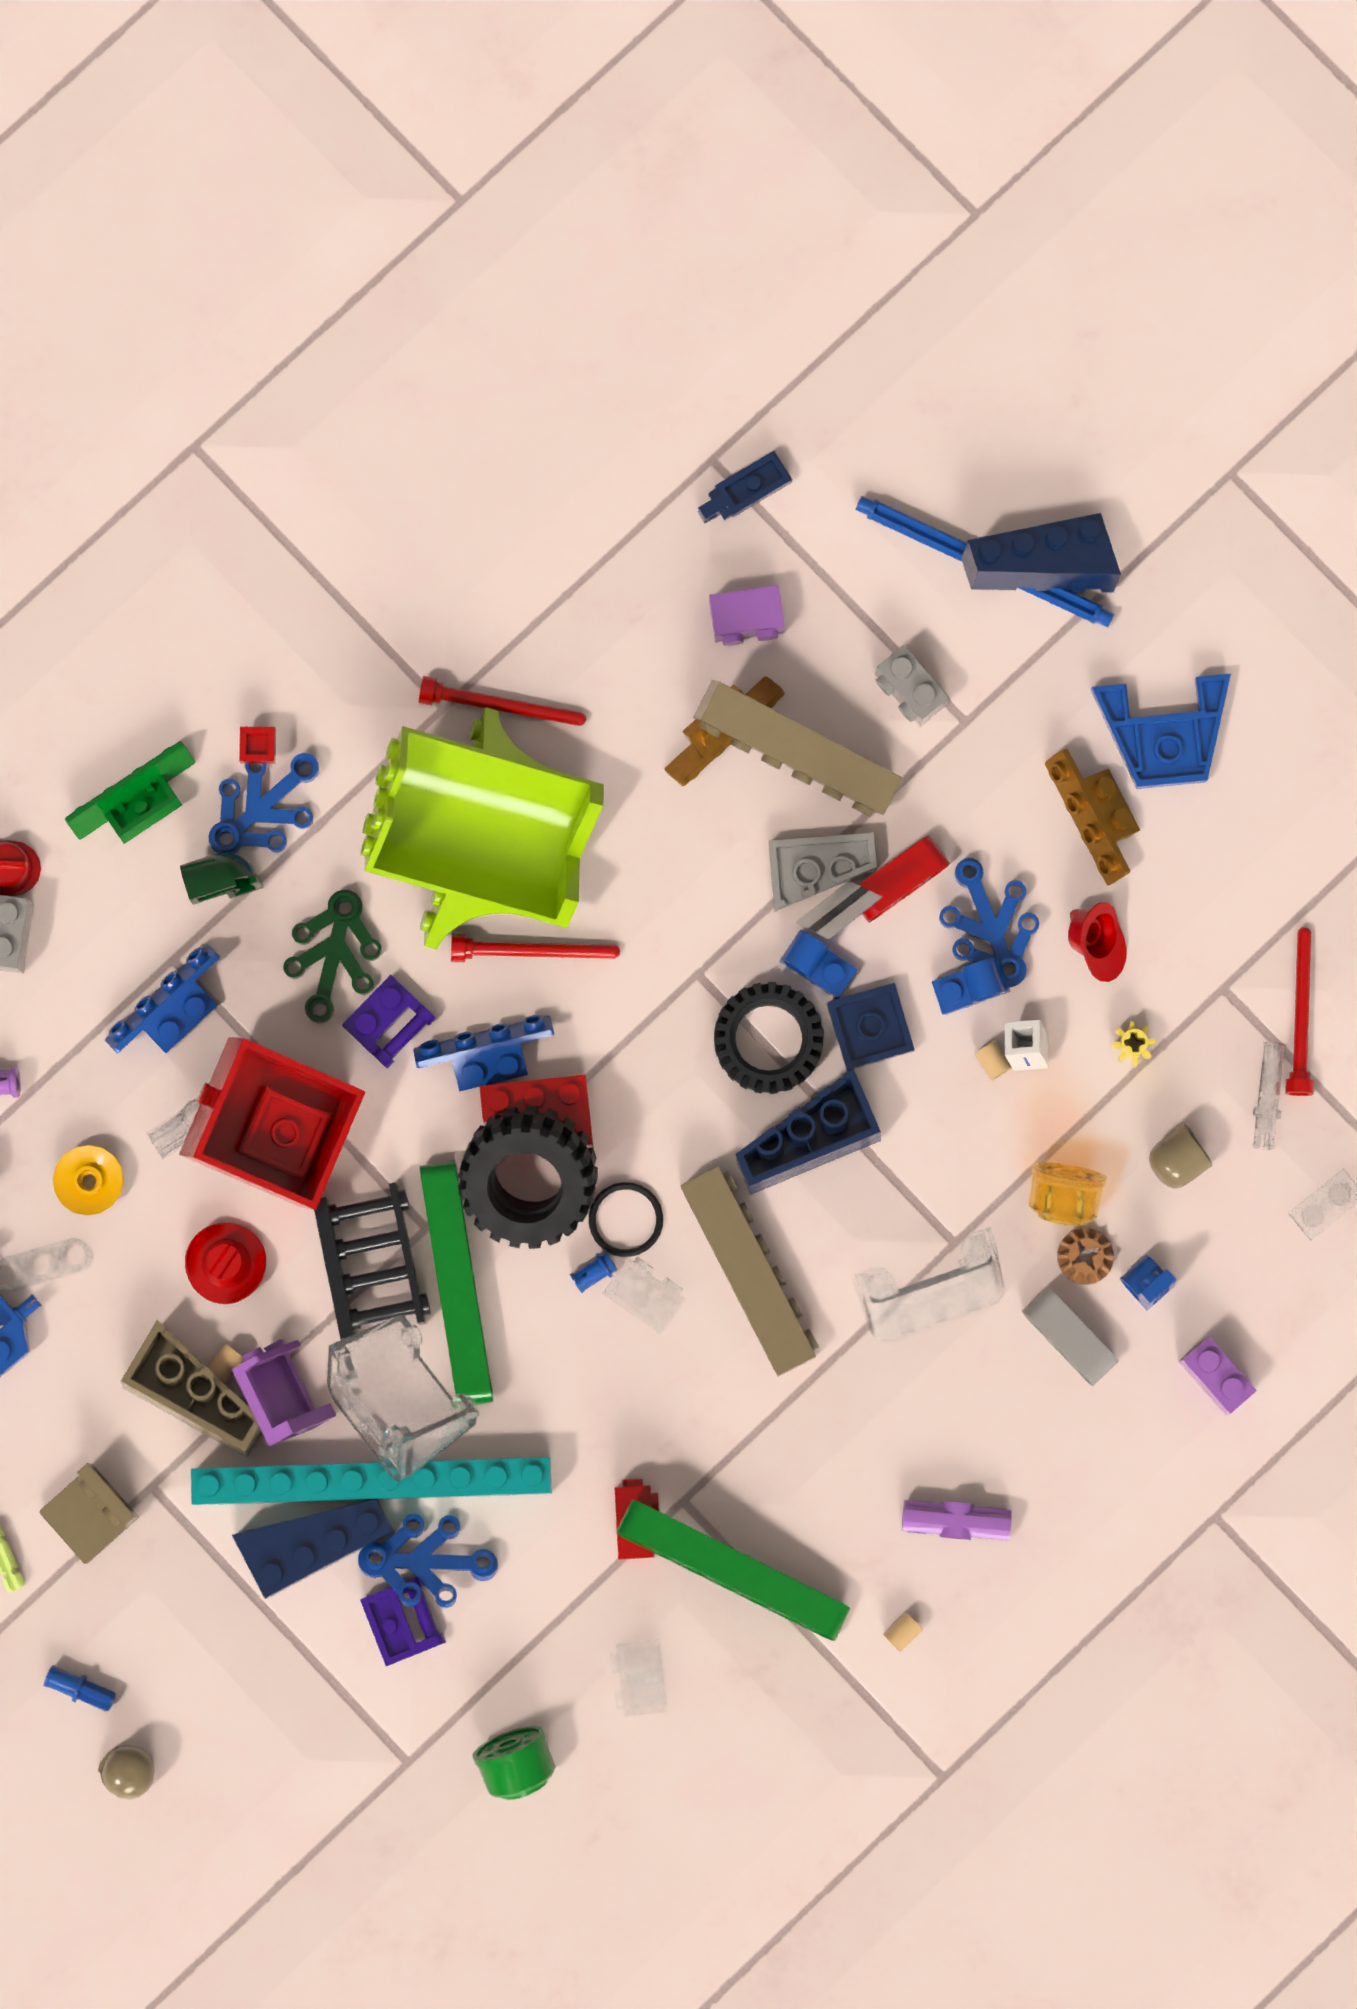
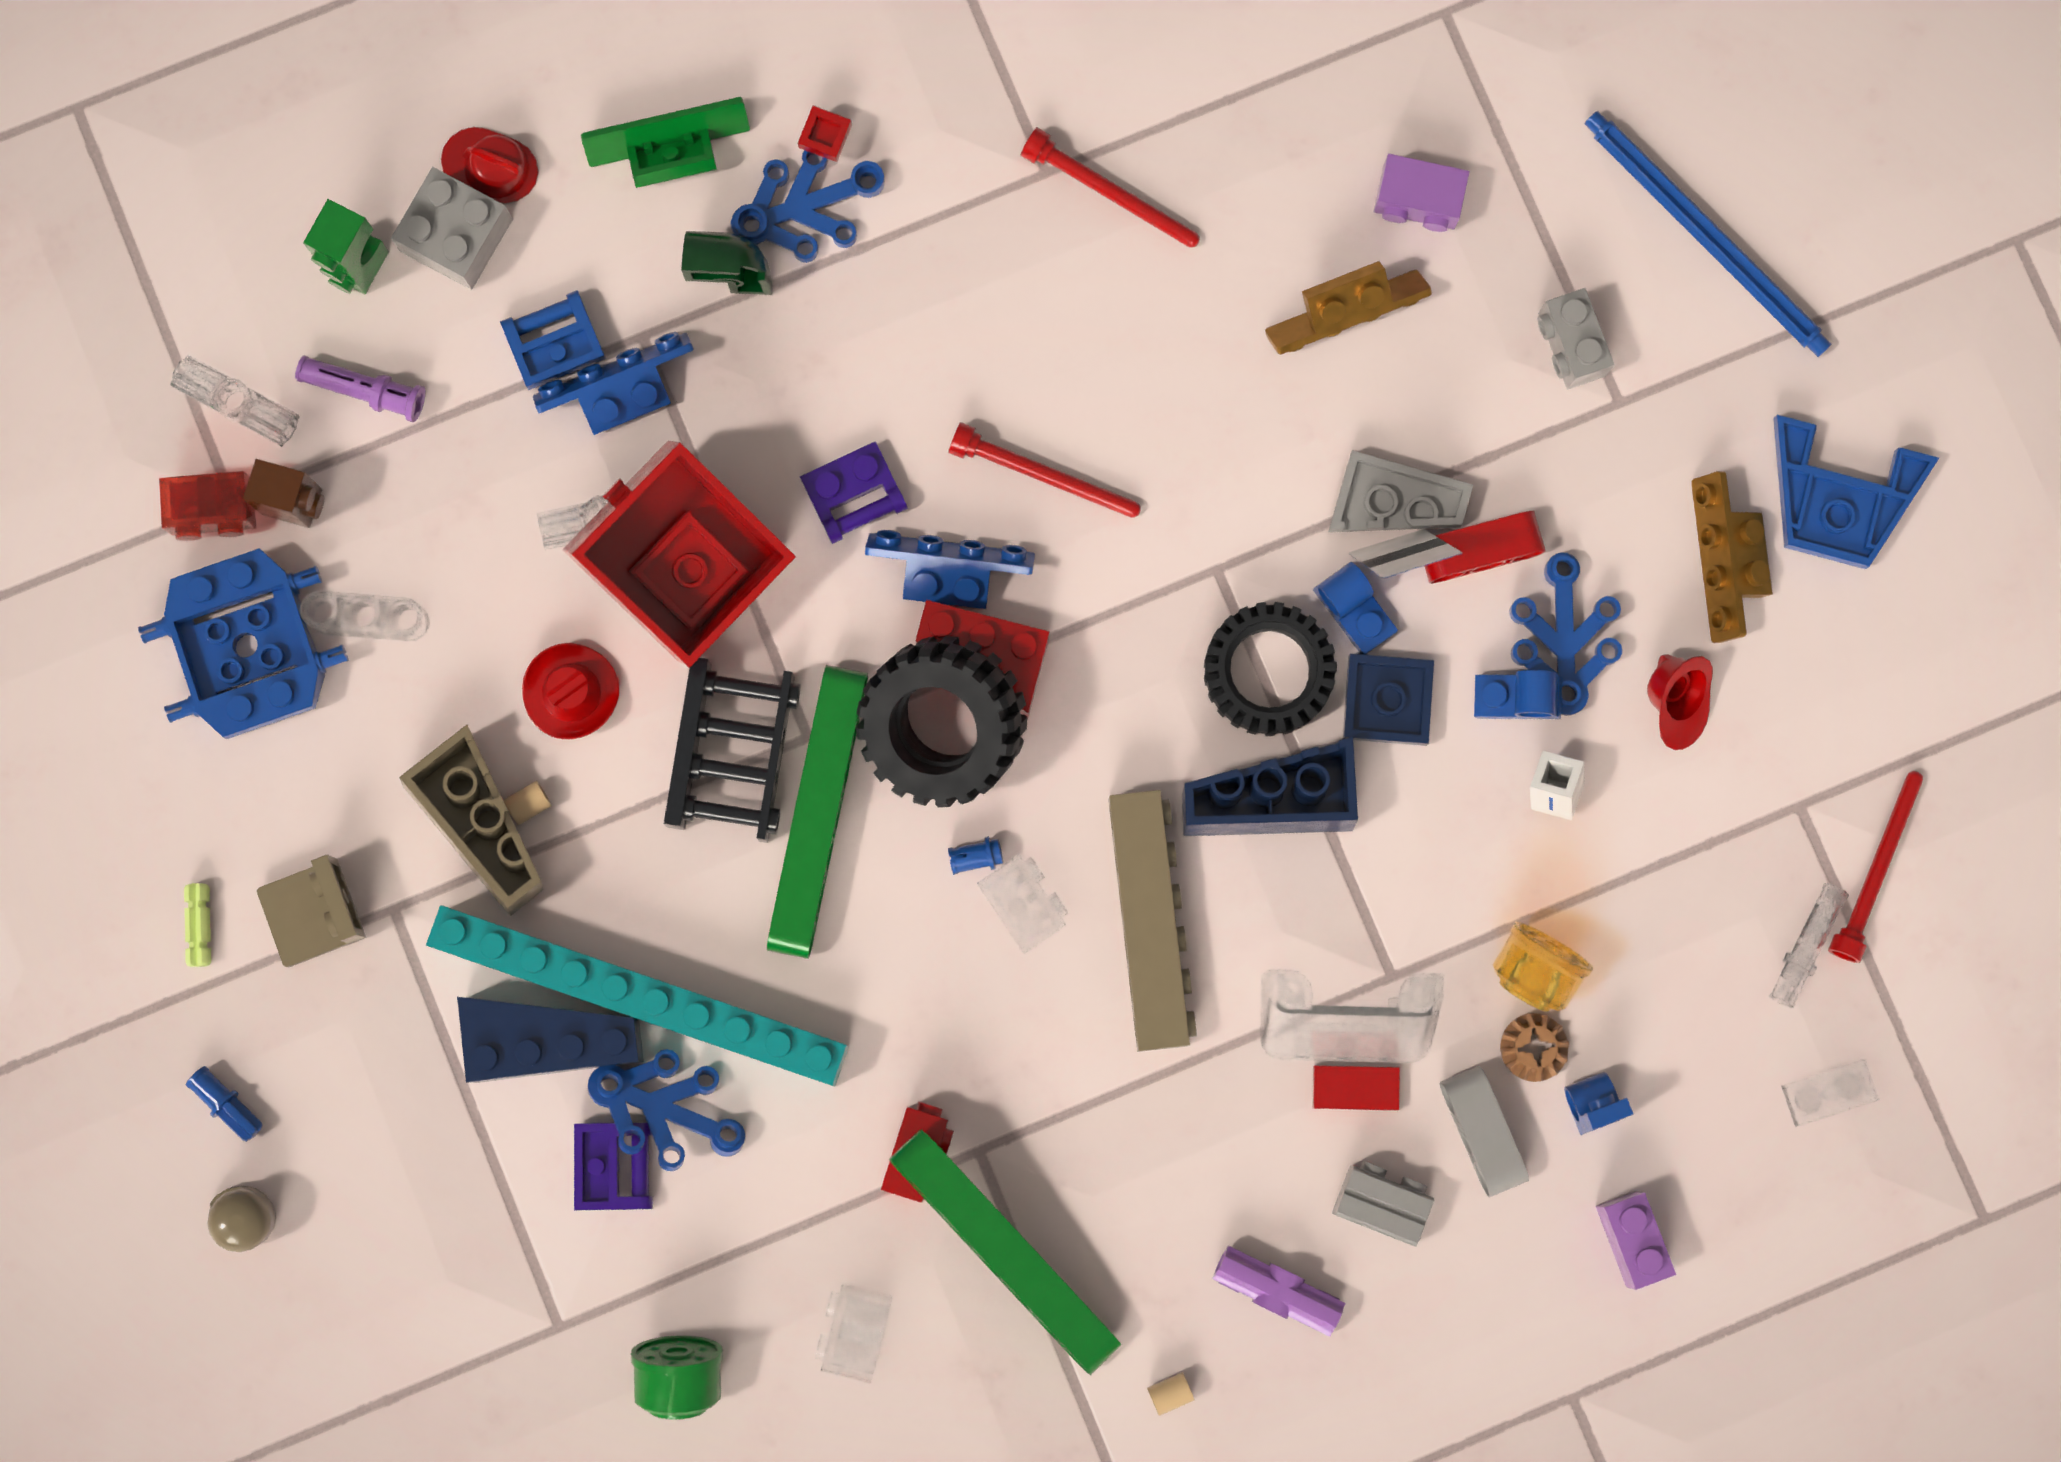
camera: 15 degrees right, 0 degrees up
(70, 1177) = (438, 528): yellow dish -> none
(112, 998) = (555, 352): none -> blue plate
(278, 1393) = (571, 857): medium lavender panel -> none
(333, 950) = (822, 391): dark green plant -> none
(396, 1397) = (700, 912): clear windscreen -> none
(479, 827) = (1035, 312): lime cylinder -> none
(625, 1186) = (1033, 851): black tyre -> none
(745, 488) = (1471, 55): dark blue hinge -> none
(796, 747) = (1423, 356): dark tan brick -> none
(958, 1340) = (1356, 1088): none -> red tile
(993, 1060) = (1512, 789): tan hinge -> none
(1013, 1422) = (1384, 1204): none -> light grey brick
(1042, 557) = (1779, 249): dark blue wedge -> none
(1126, 1051) = (1667, 835): light yellow gear -> none
(1179, 1158) = (1682, 977): dark tan helmet -> none

